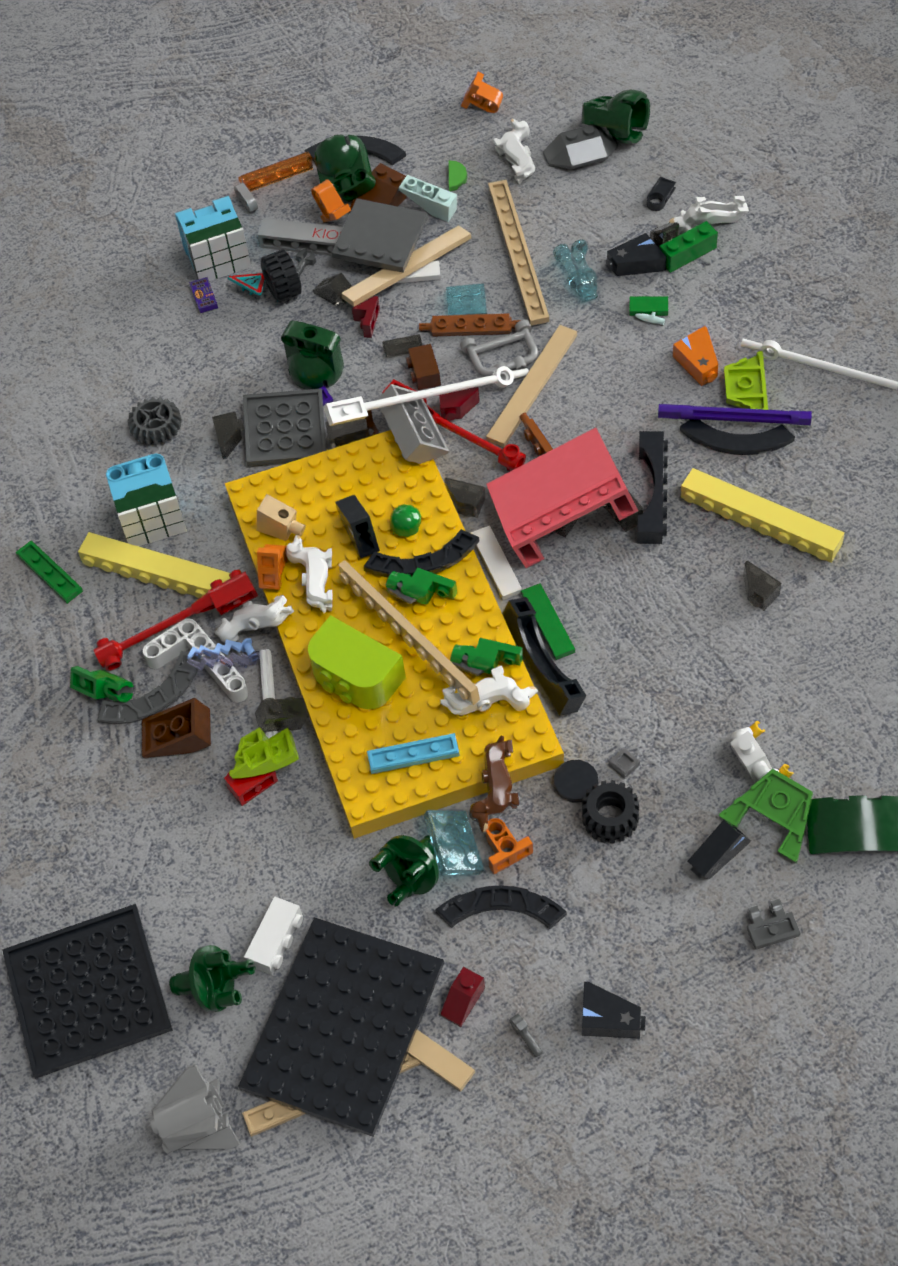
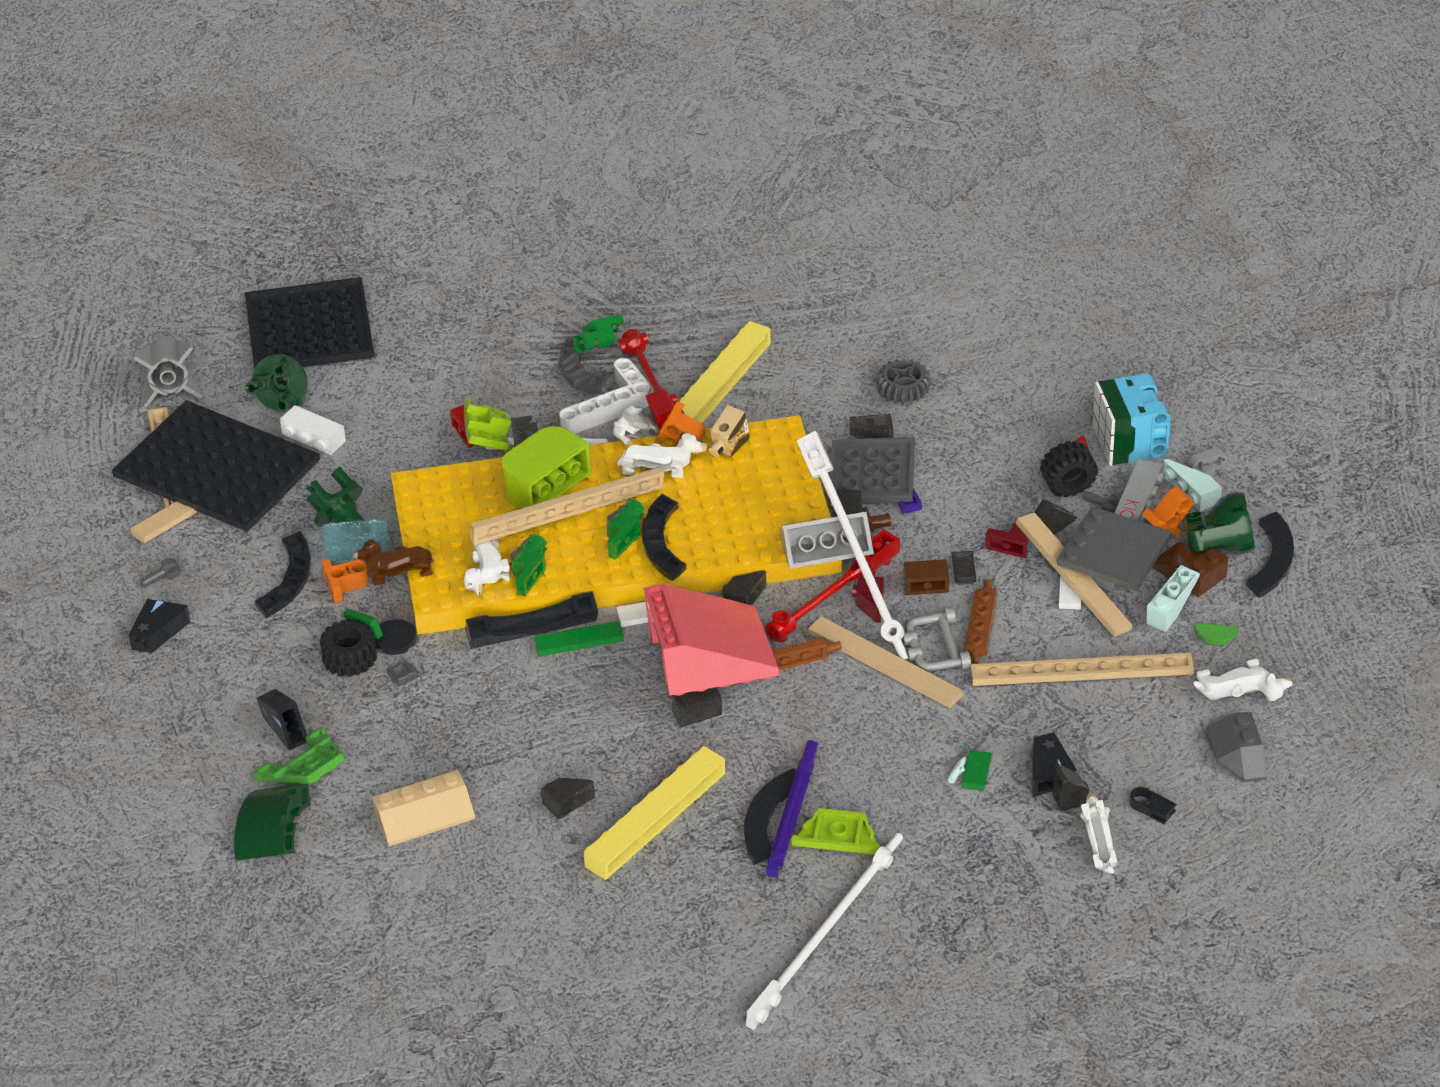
camera: 95 degrees right, 15 degrees down
(49, 571) = (743, 313): green tile -> none
(145, 500) = (789, 358): piece -> none
(177, 730) = (536, 384): reddish brown slope -> none
(203, 295) = (1072, 425): tile -> none
(244, 660) = (598, 398): clear purple piece -> none
(277, 171) = (1245, 481): clear orange panel -> none
(280, 201) = (1196, 484): none -> light aqua slope
(312, 355) = (951, 486): dark green piece -> none
(357, 525) = (708, 487): black slope -> none
(405, 520) = (710, 526): green hair -> none
(413, 753) = (445, 512): medium azure tile -> none
(462, 996) = (213, 539): dark red slope -> none
(466, 299) = (1017, 623): clear light blue plate -> none
(482, 95) = (1338, 660): orange tile -> none
(574, 806) = (366, 619): none -> green tile
(582, 280) = (1025, 717): clear light blue piece -> none
(619, 114) = (1271, 766): dark green piece -> none
(650, 524) = (763, 739): black arch -> none
(689, 246) = (1054, 810): green brick -> none
(697, 356) = (887, 796): orange slope -> none
(751, 754) = (369, 751): white torso -> none
(773, 930) = (190, 744): dark grey plate -> none
(804, 699) = (423, 808): none -> tan slope

